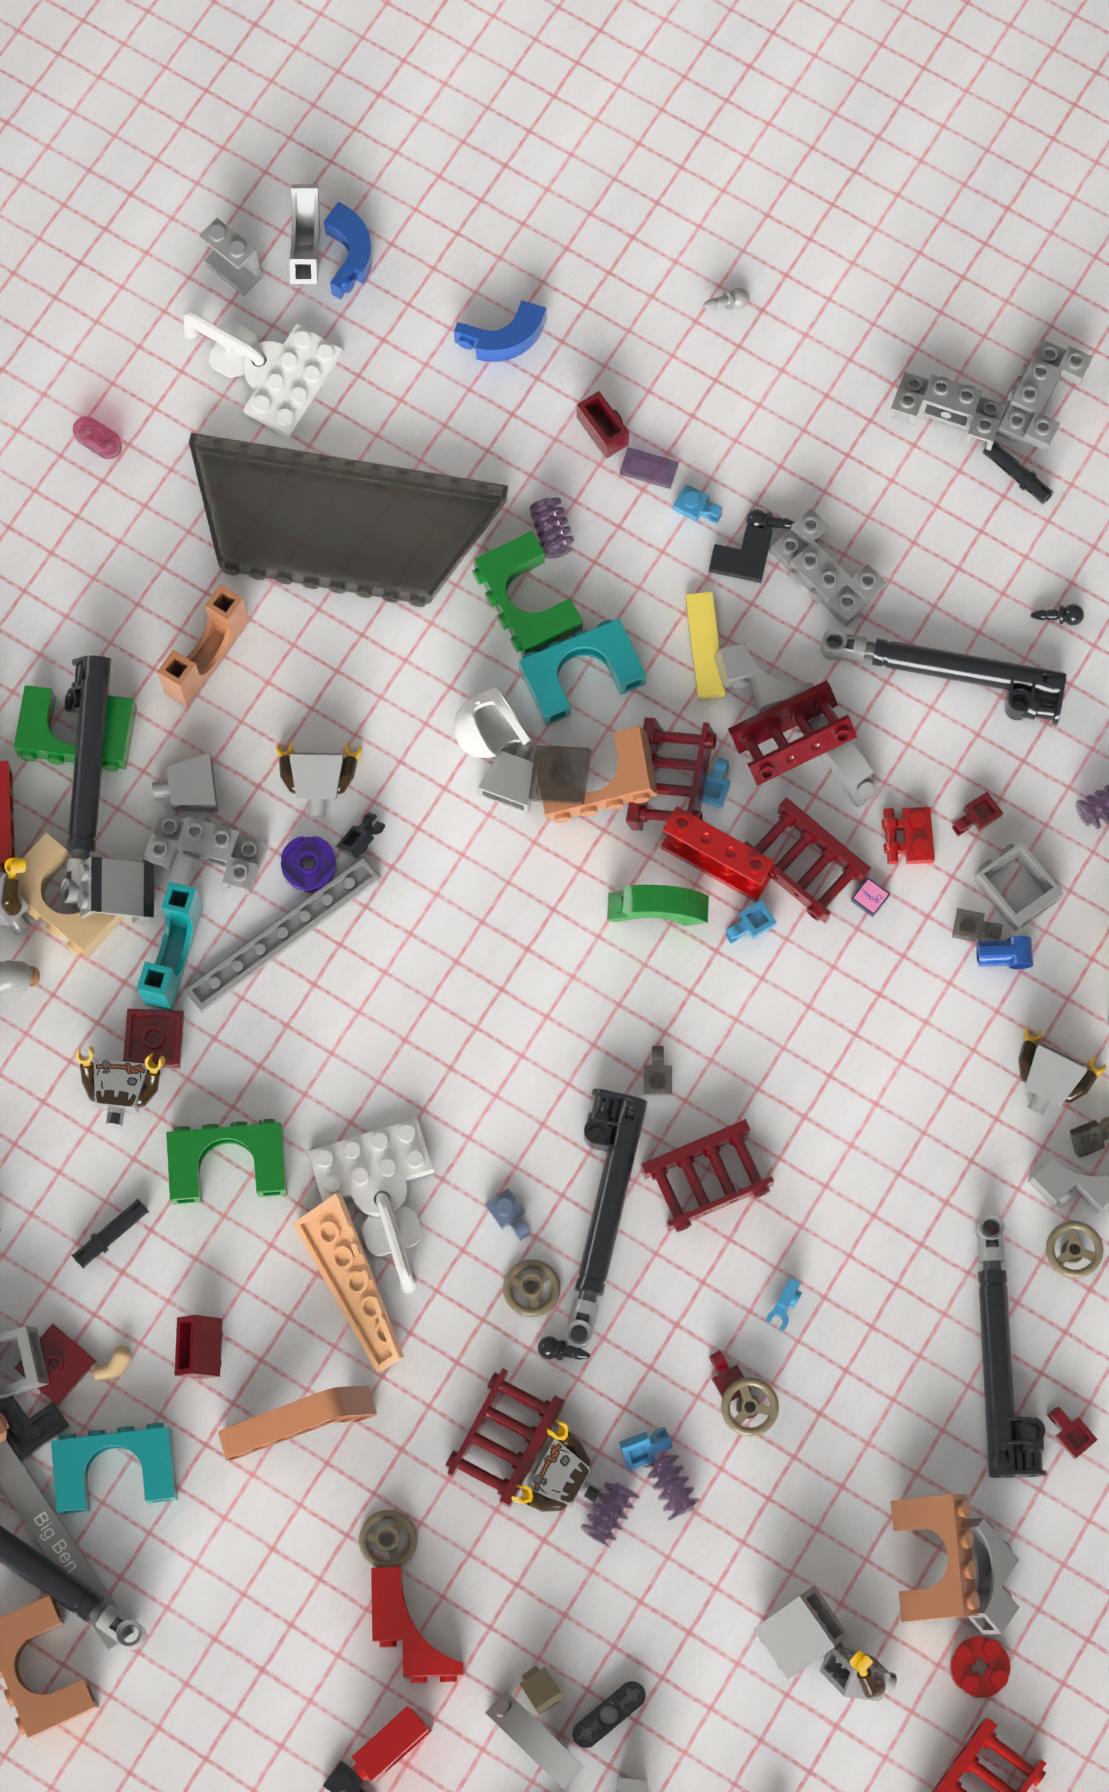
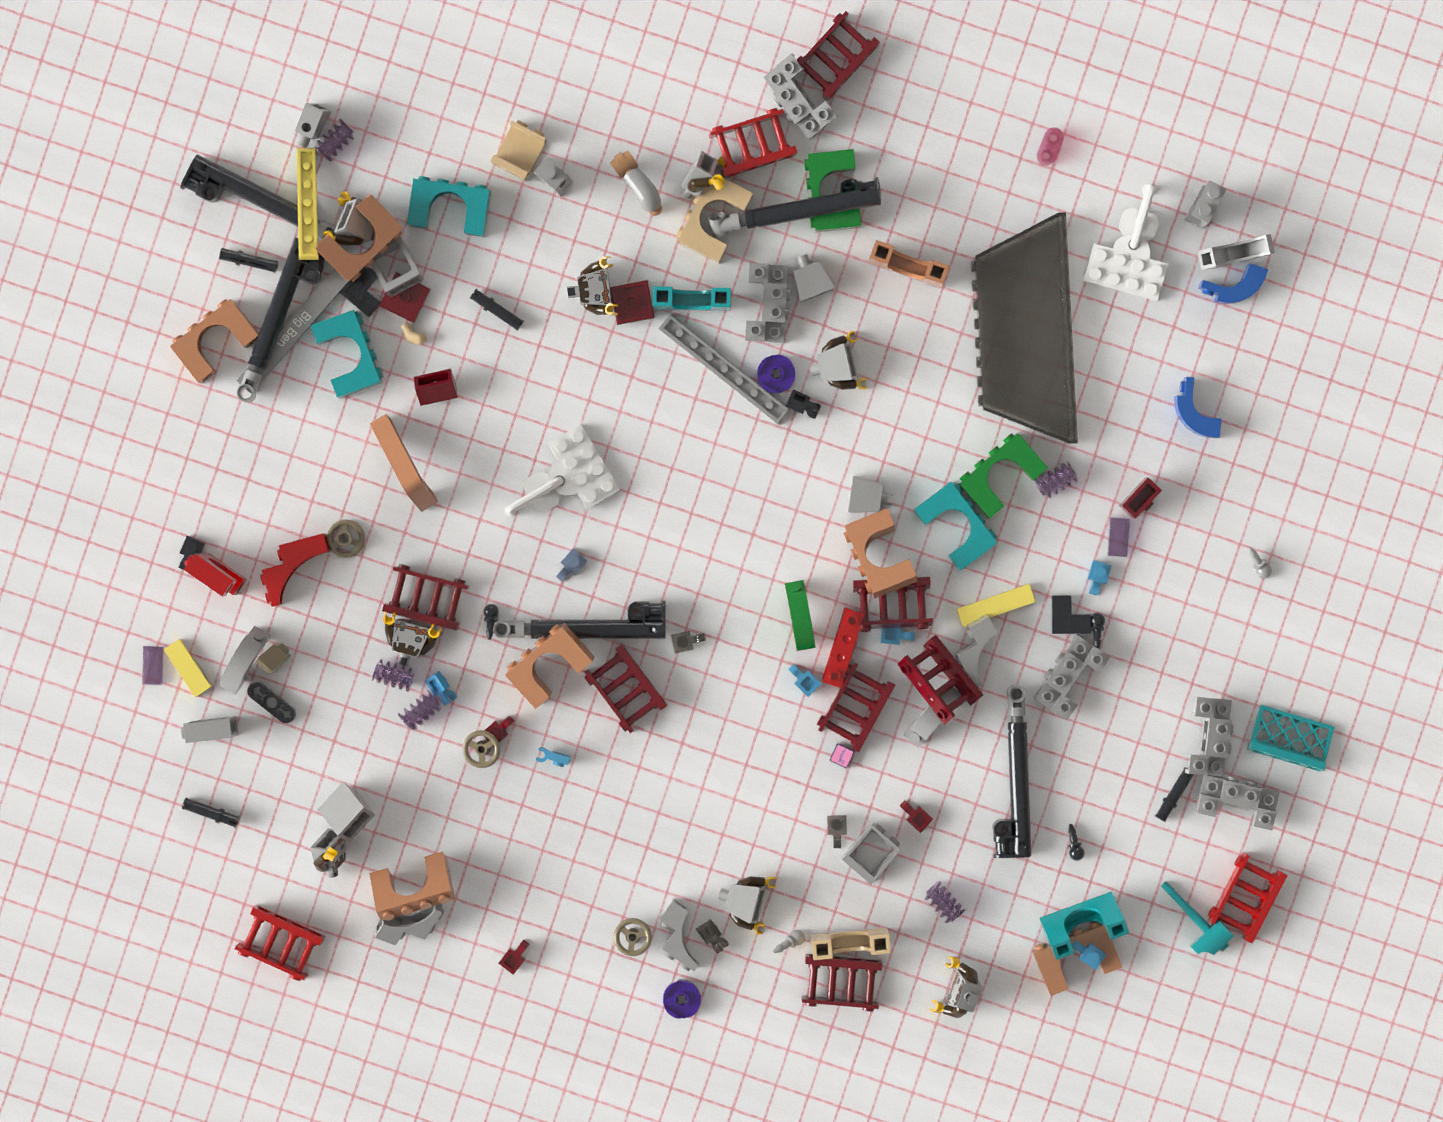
camera: 80 degrees right, 15 degrees up
(116, 888) = (723, 251): light grey panel -> none
(189, 1147) = (578, 393): green arch -> none
(343, 1264) = (516, 462): light nougat wing -> none
(487, 725) = (899, 471): white piece -> none
(536, 1309) = (538, 599): dark tan piece -> none
(560, 774) = (873, 529): clear smoke plate -> none
(615, 1250) = (560, 641): none -> nougat arch
(917, 834) = (894, 777): red plate -> none
(971, 1682) = (349, 937): red plate -> none
(994, 316) = (1290, 755): none -> teal fence
(1007, 1446) = (495, 918): black piece -> none
(1013, 952) = (824, 858): blue piece -> none

